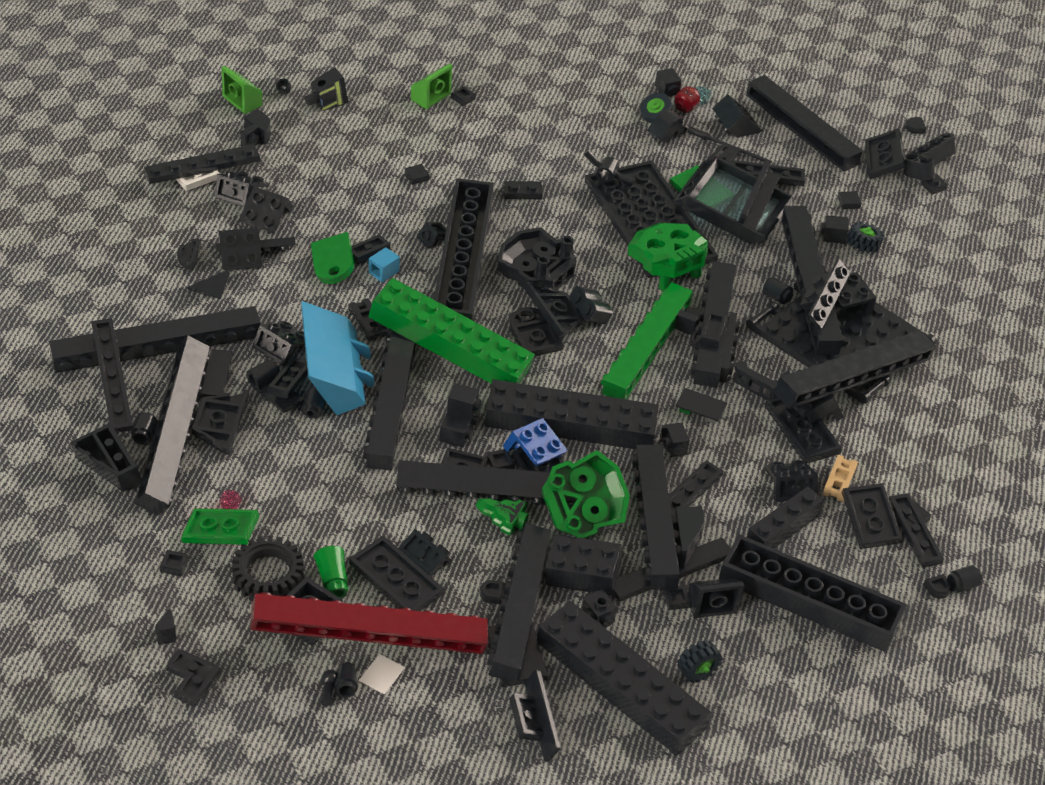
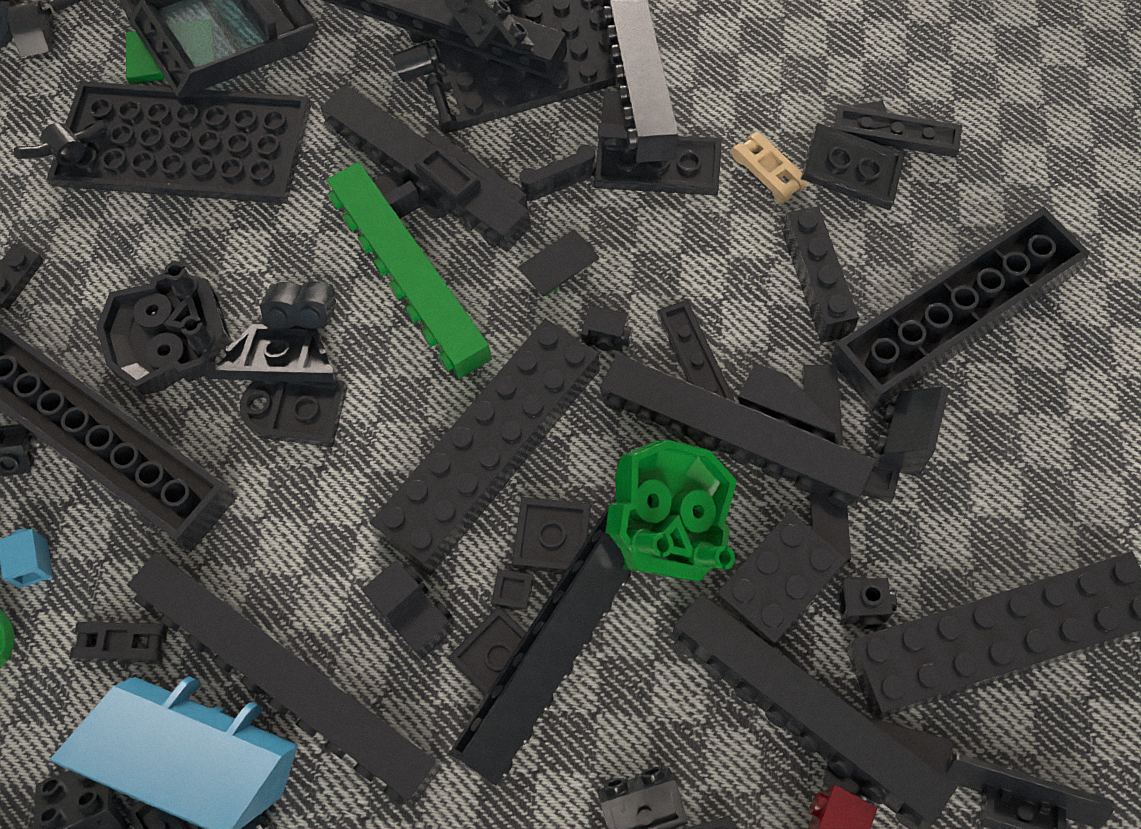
camera: 50 degrees left, 20 degrees up
(449, 334) = (241, 541): green brick -> none
(492, 591) = (756, 737): black tile -> none
(505, 514) = (622, 640): green rock -> none
(537, 441) = (521, 523): blue bracket -> none
(669, 251) = (269, 150): green brick -> none
(700, 661) = (1025, 514): black wheel -> none
(791, 479) = (746, 220): black bracket -> none
(938, 586) = (993, 156): black tile -> none
(965, 578) = (1002, 121): black brick -> none

